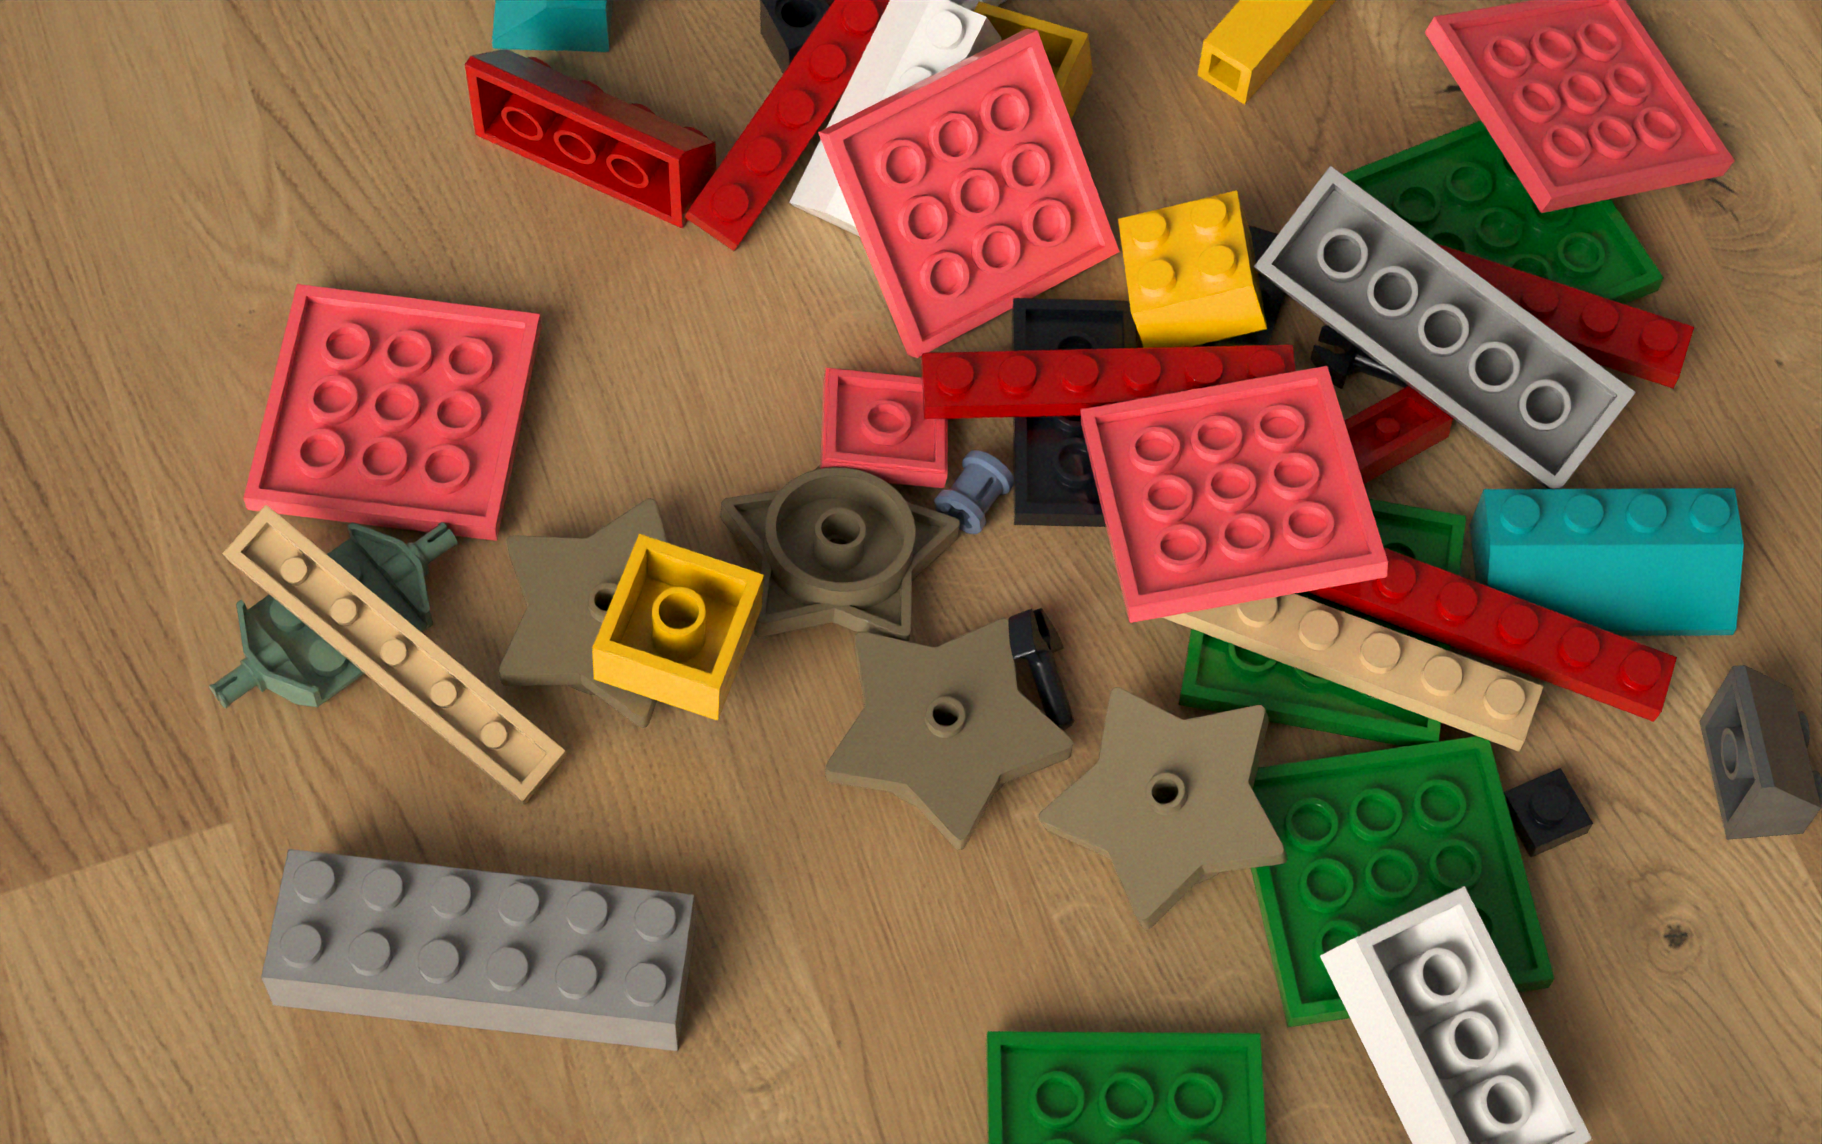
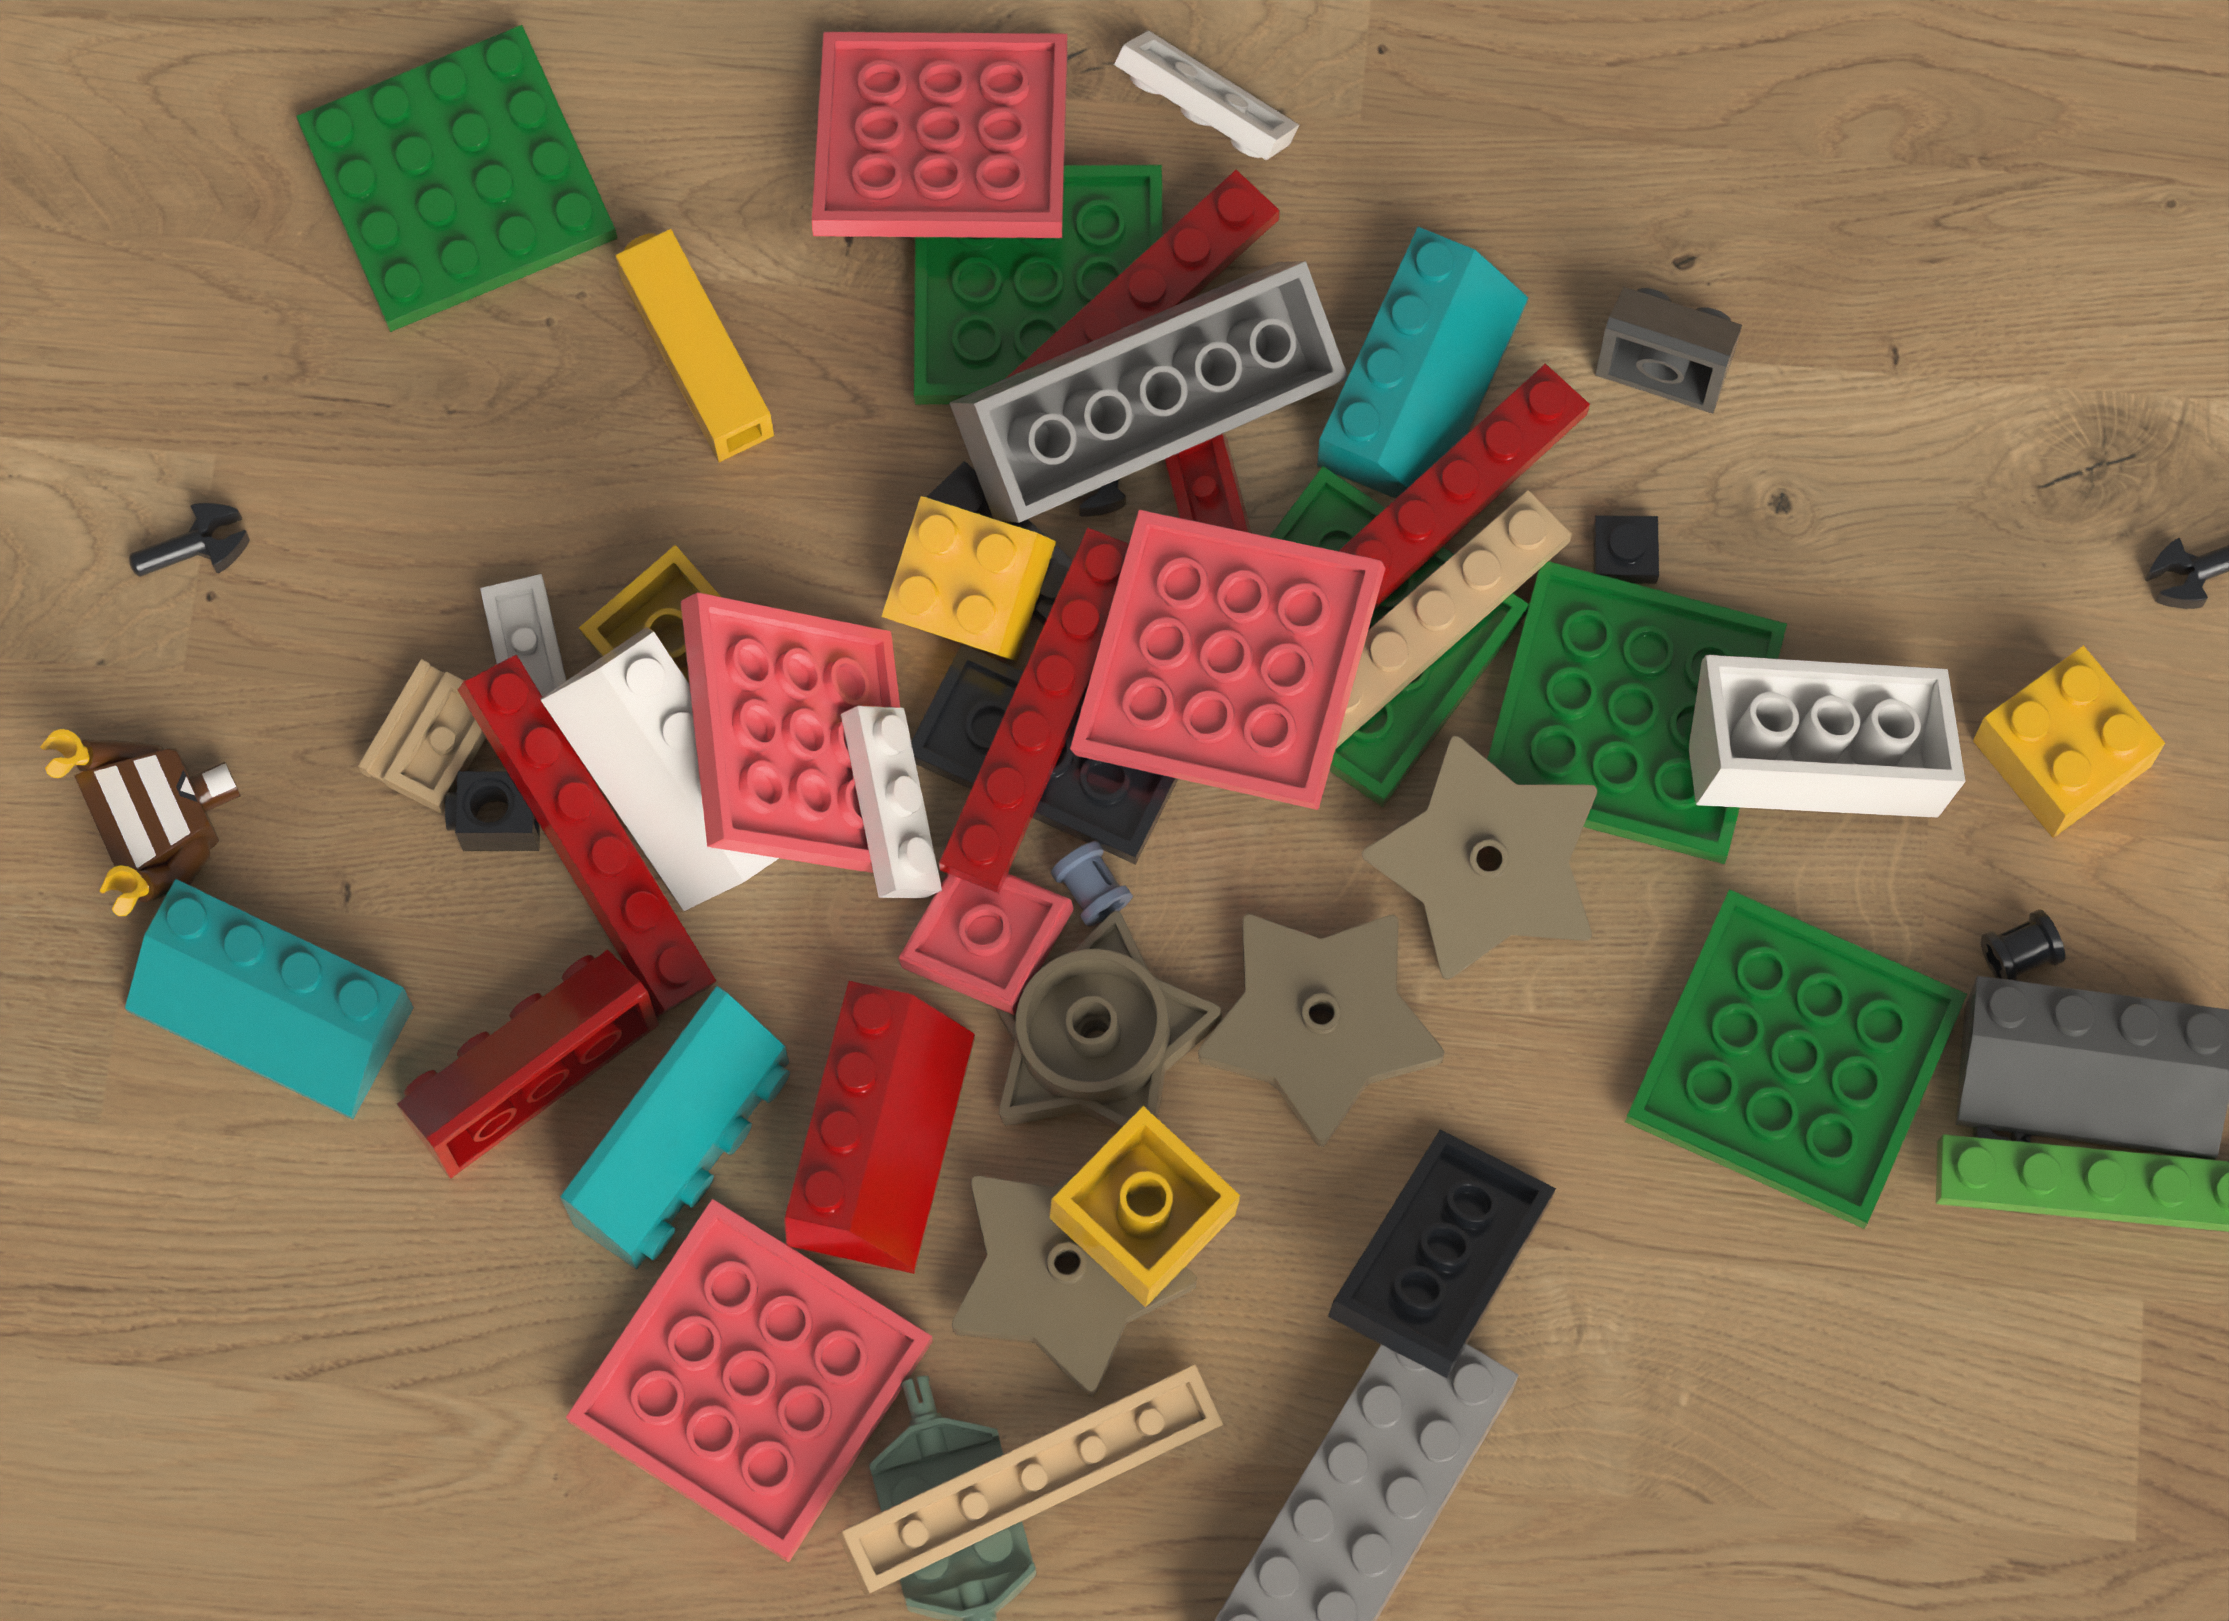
camera: 60 degrees left, 10 degrees up
(583, 253) = (677, 1131): none -> teal slope
(660, 407) = (879, 1130): none -> red slope
(762, 908) = (1442, 1253): none -> black plate
(959, 298) = (891, 802): none -> white plate
(1036, 640) = (1275, 903): black bar -> none
(1751, 289) = (1206, 96): none -> white plate

